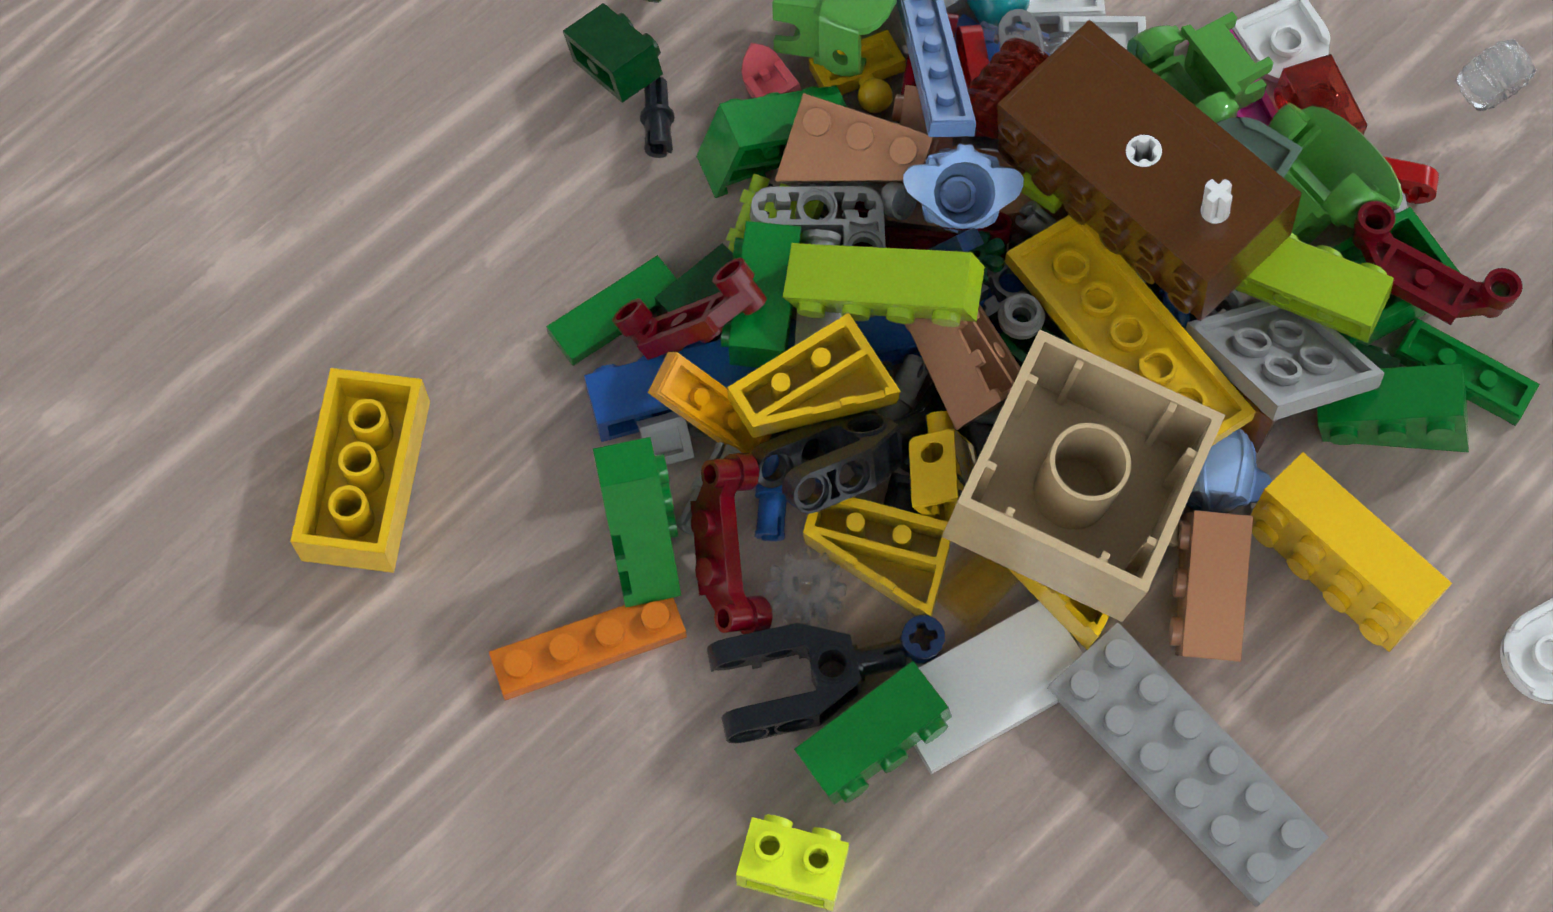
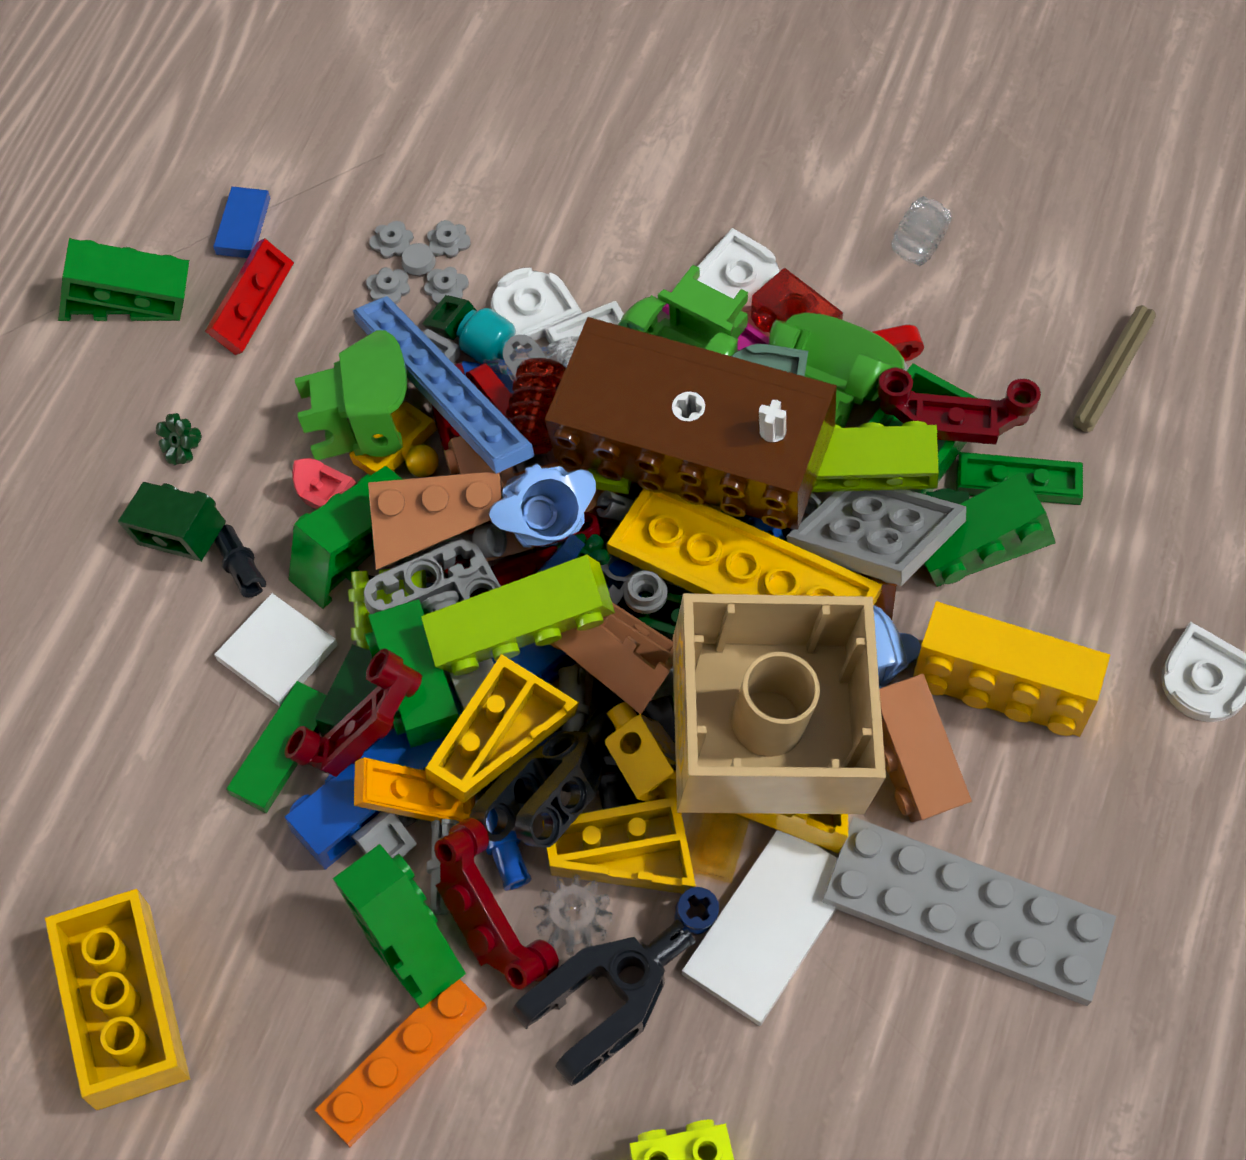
camera: 25 degrees left, 5 degrees down
(653, 216) = (276, 649): none -> white tile
(875, 734) = (698, 1015): green brick -> none

